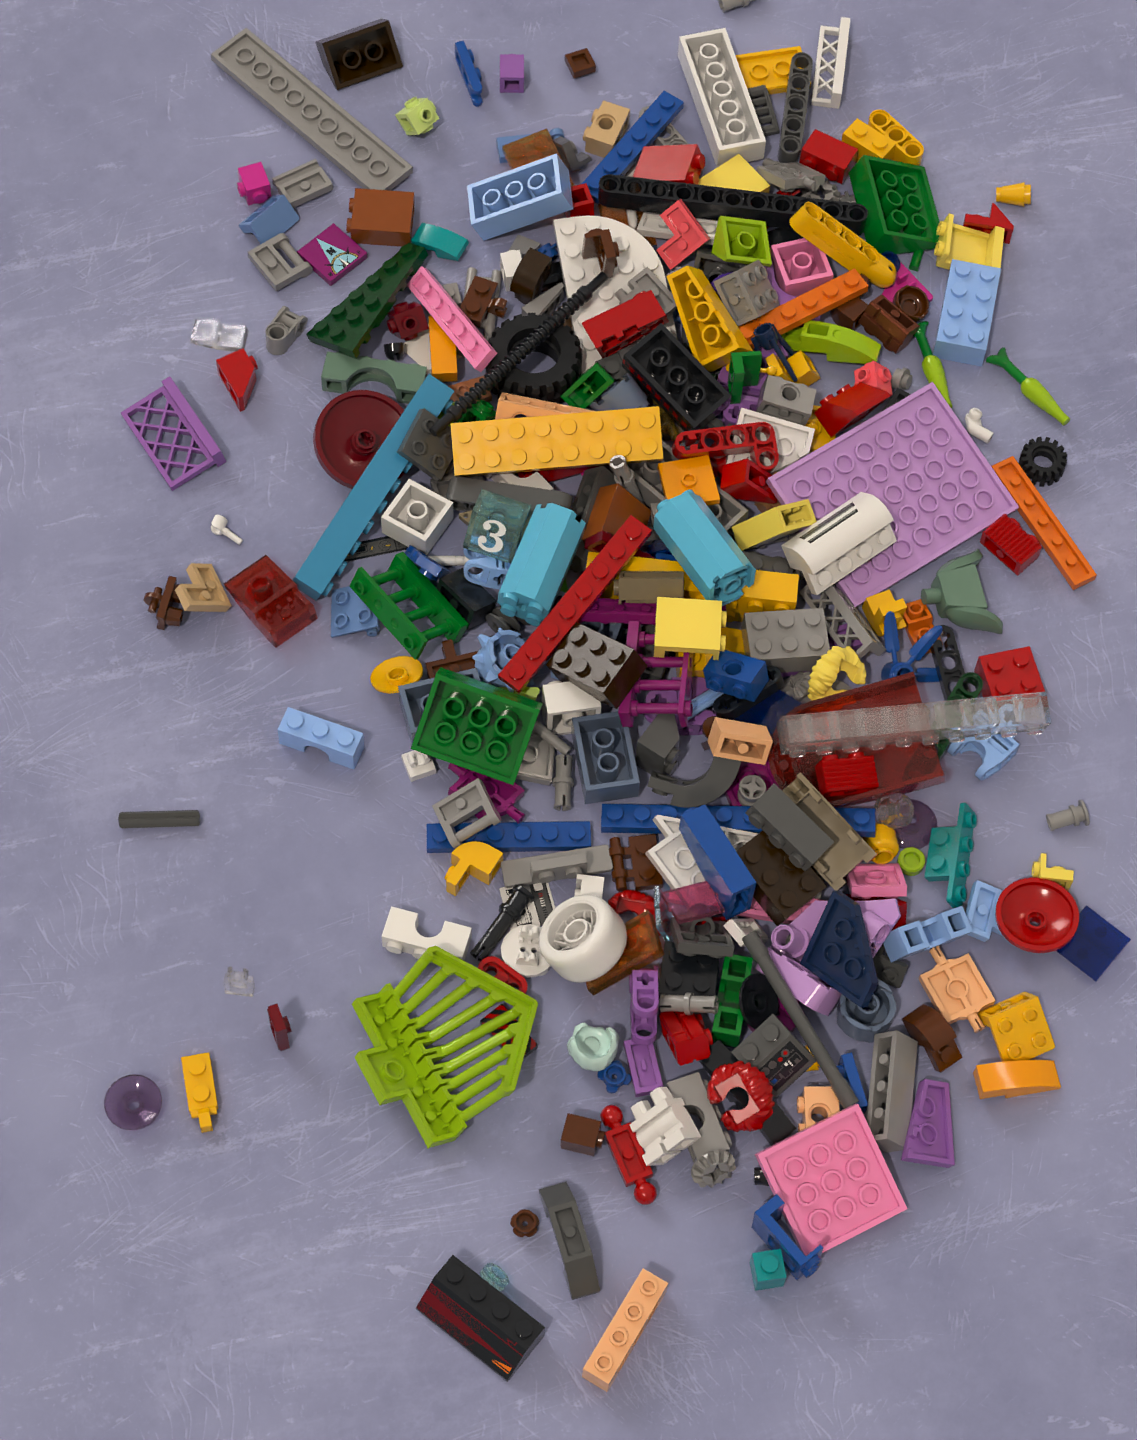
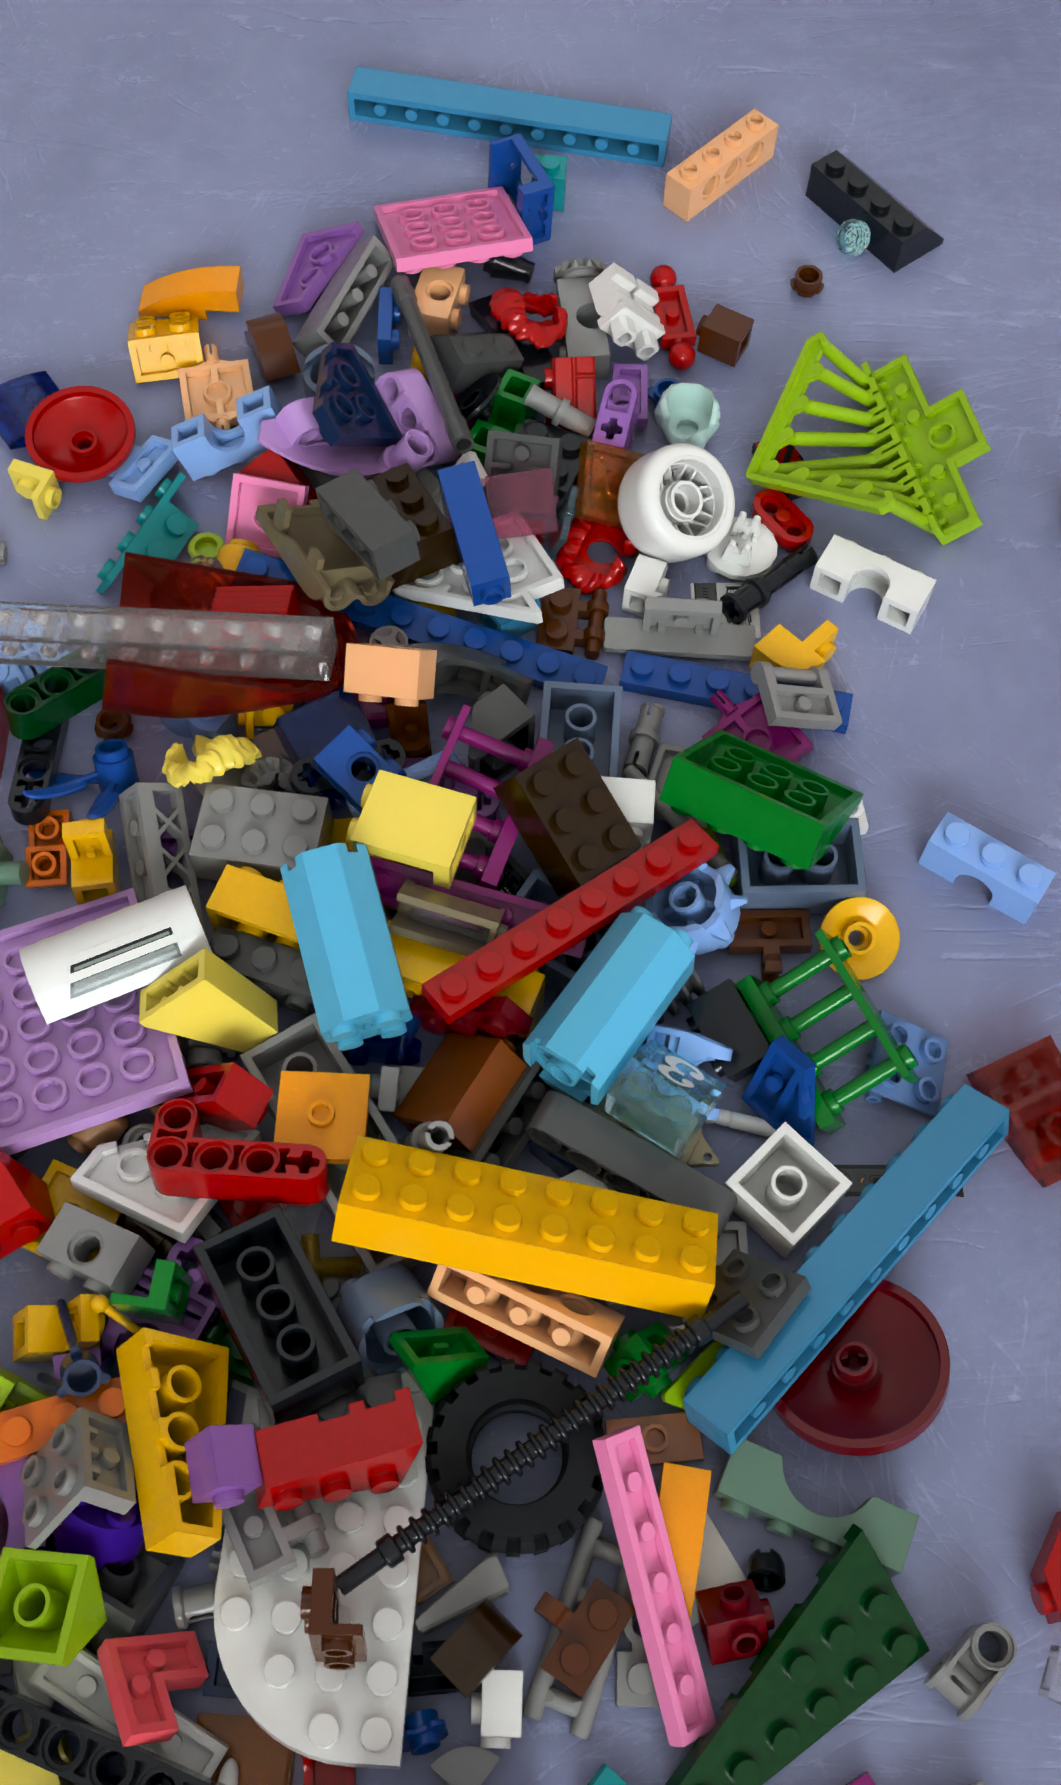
camera: 165 degrees left, 0 degrees up
(571, 1240) = (767, 256): dark grey slope -> none
(676, 300) = (223, 1464): none -> medium lavender brick
(825, 1345) = (498, 113): none -> dark azure brick

